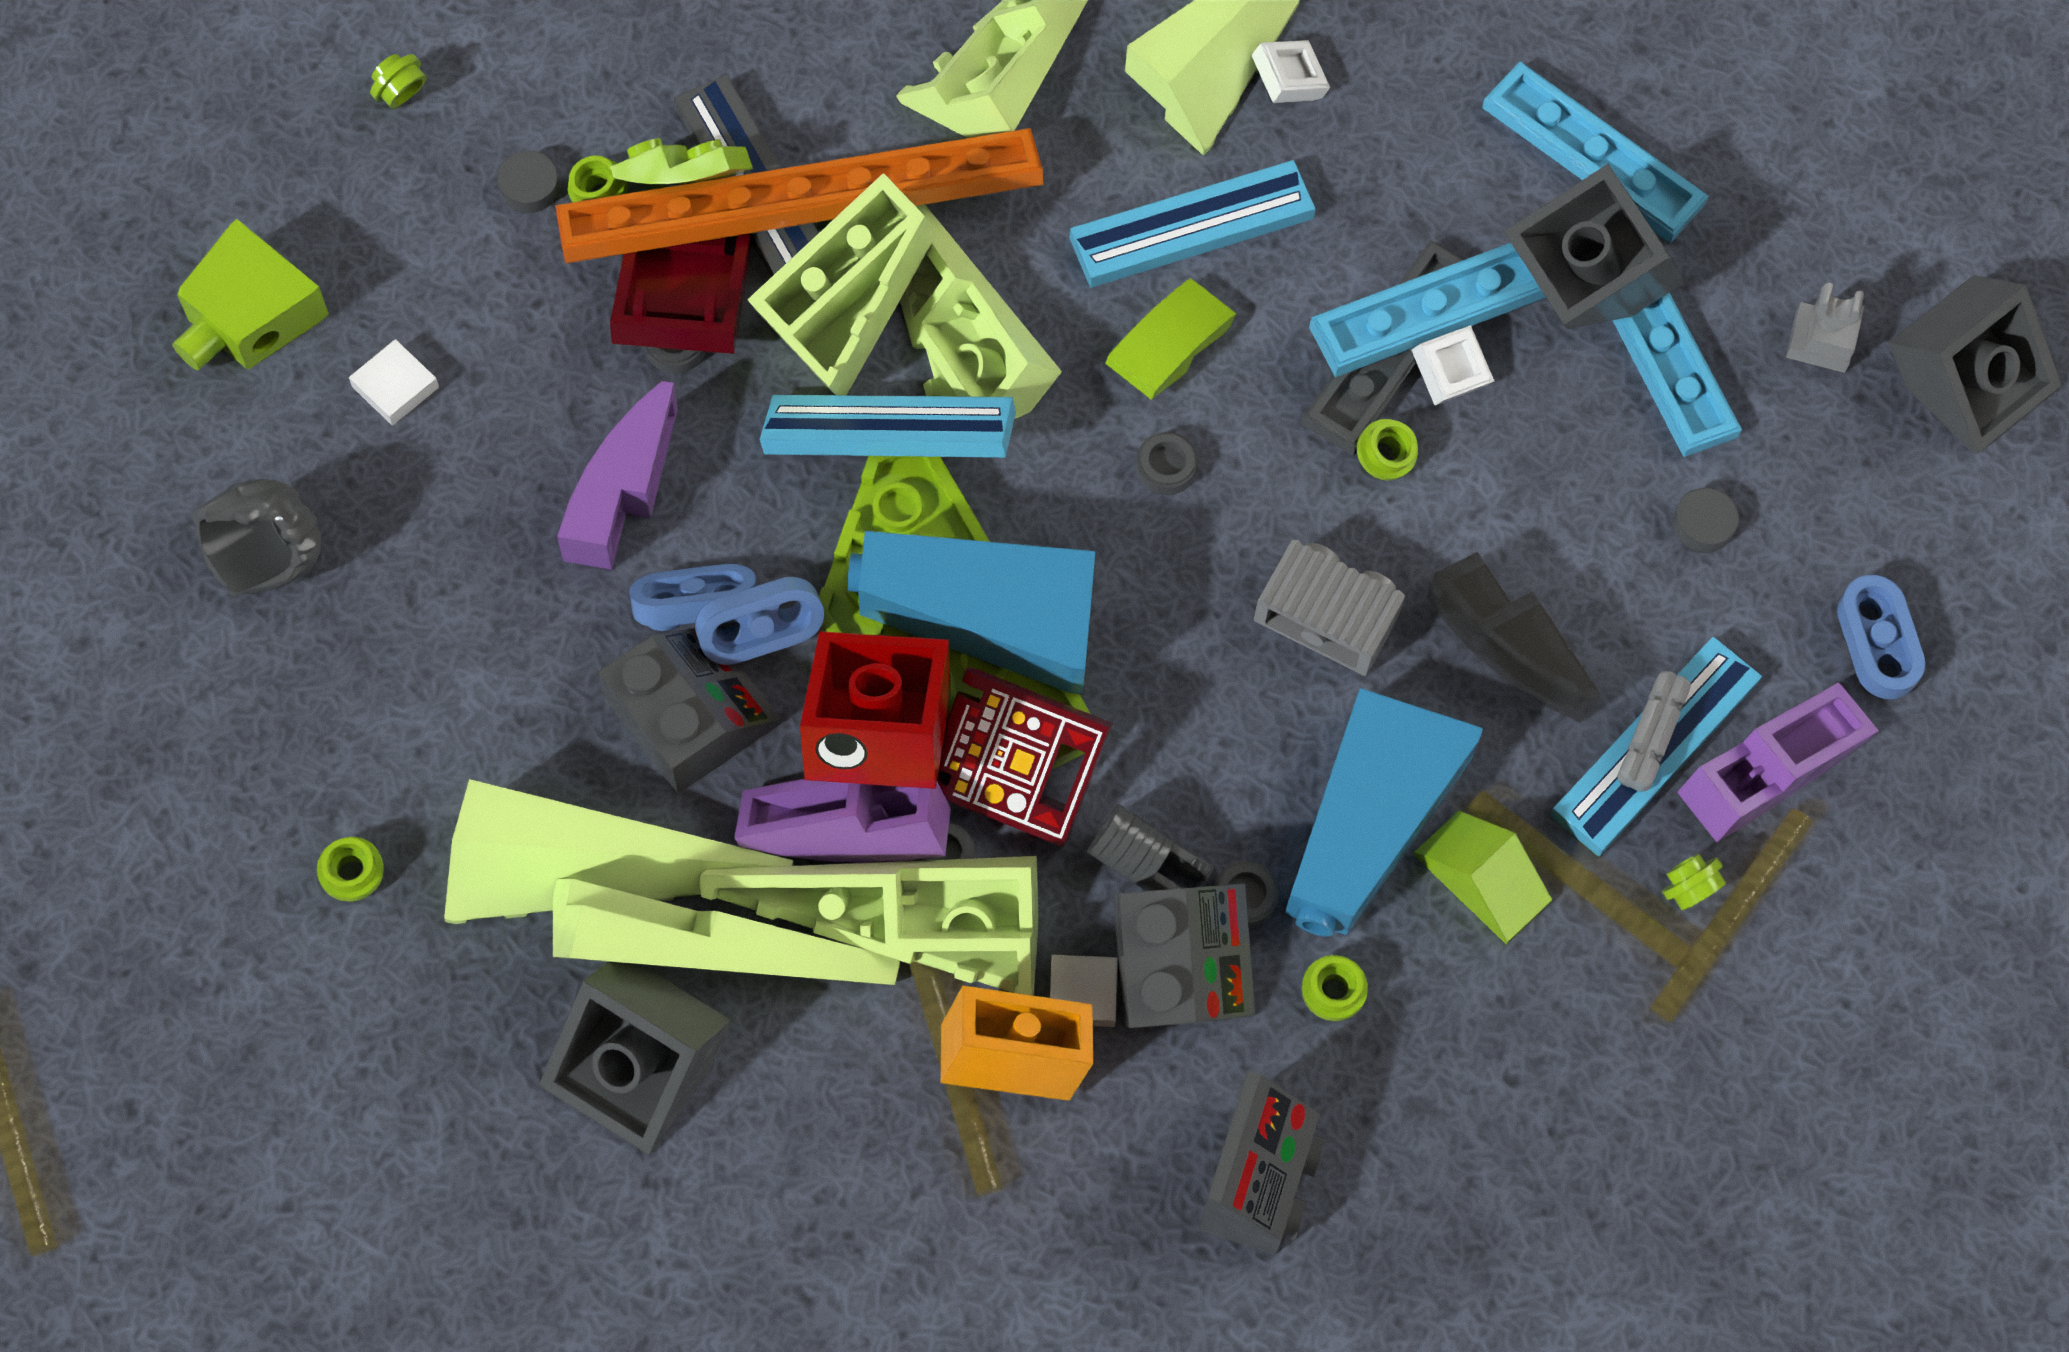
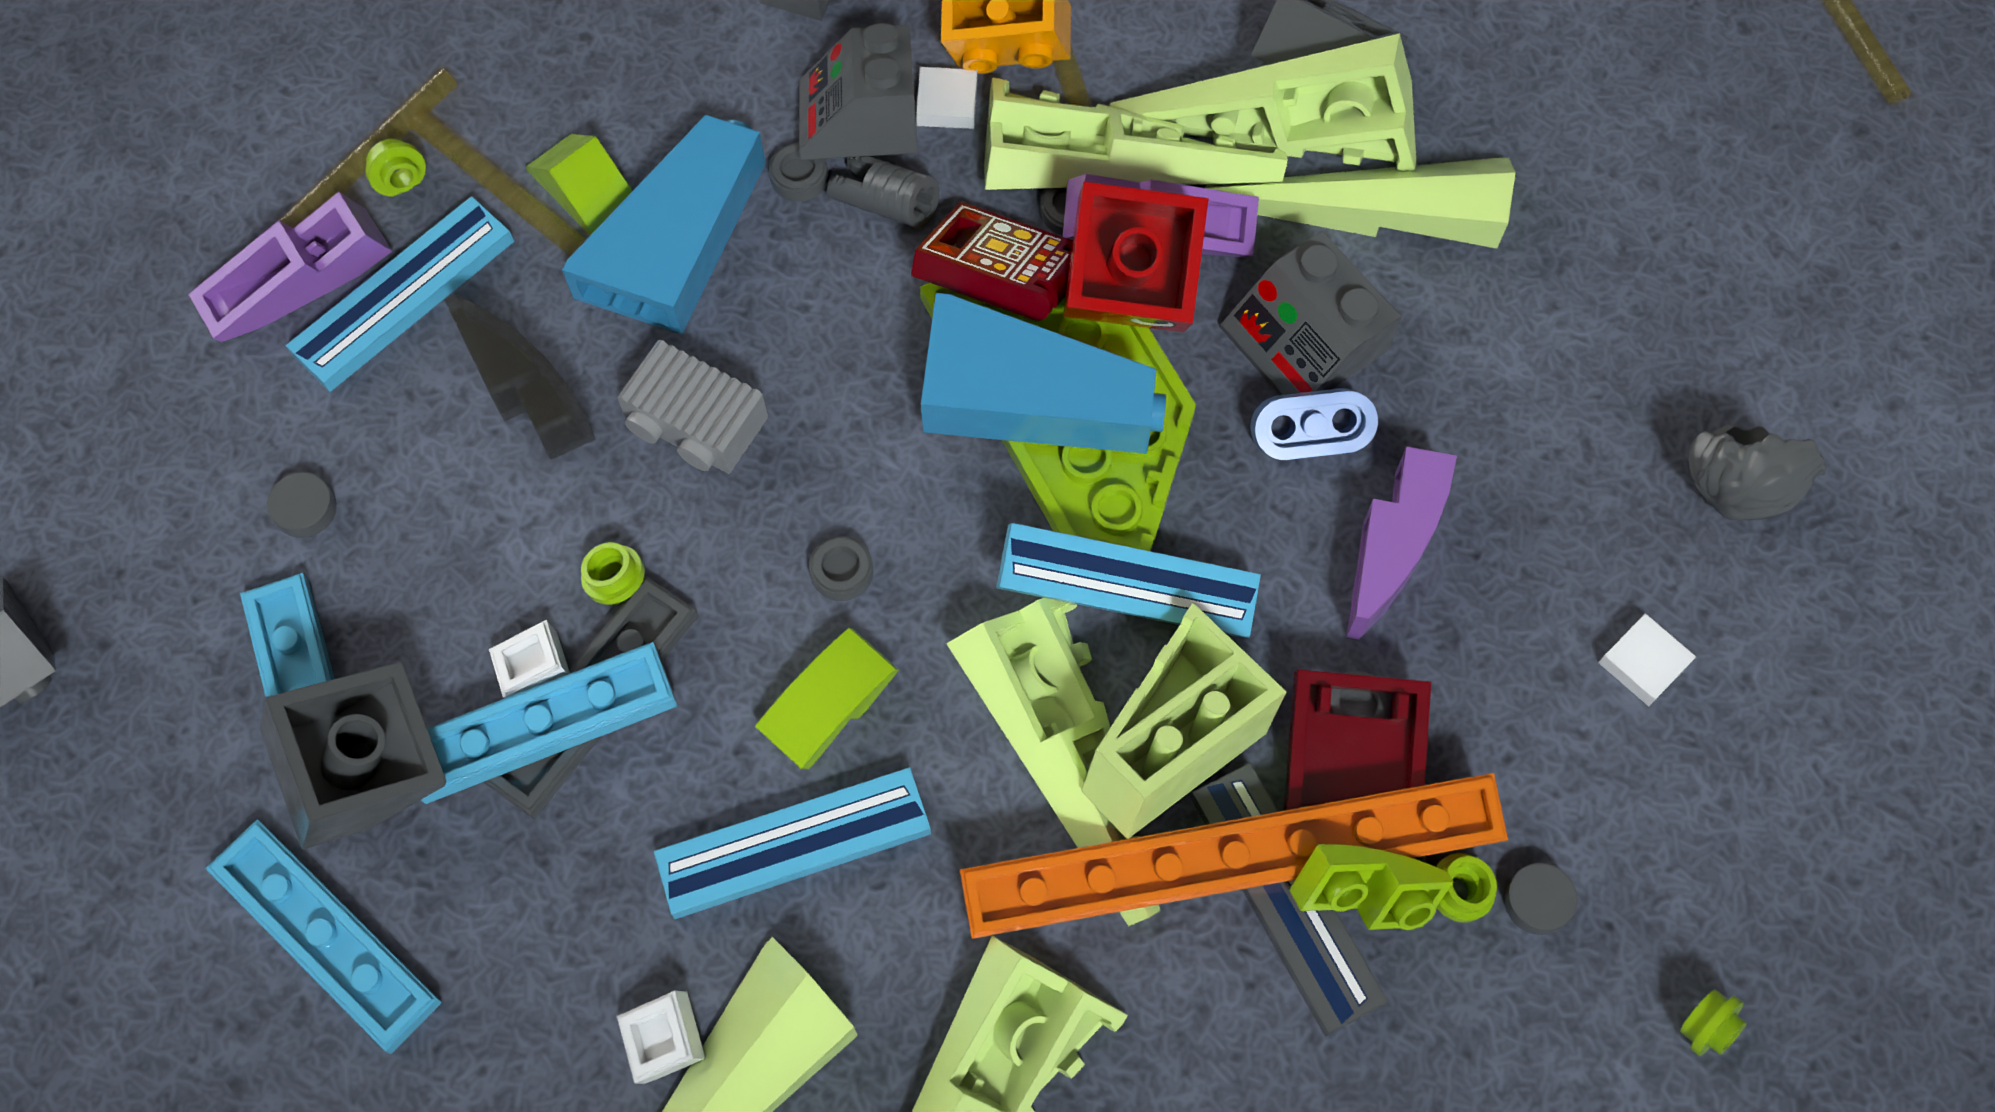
camera: 175 degrees left, 0 degrees up
(245, 301) = (1827, 740): lime torso -> none
(345, 851) = (1603, 181): lime plate -> none
(759, 621) = (1273, 375): medium blue plate -> none
(1334, 968) = (726, 81): lime plate -> none
(1654, 731) = (400, 283): light grey axle -> none
(1826, 331) = (116, 696): light grey piece -> none
(1881, 640) = (155, 387): medium blue plate -> none

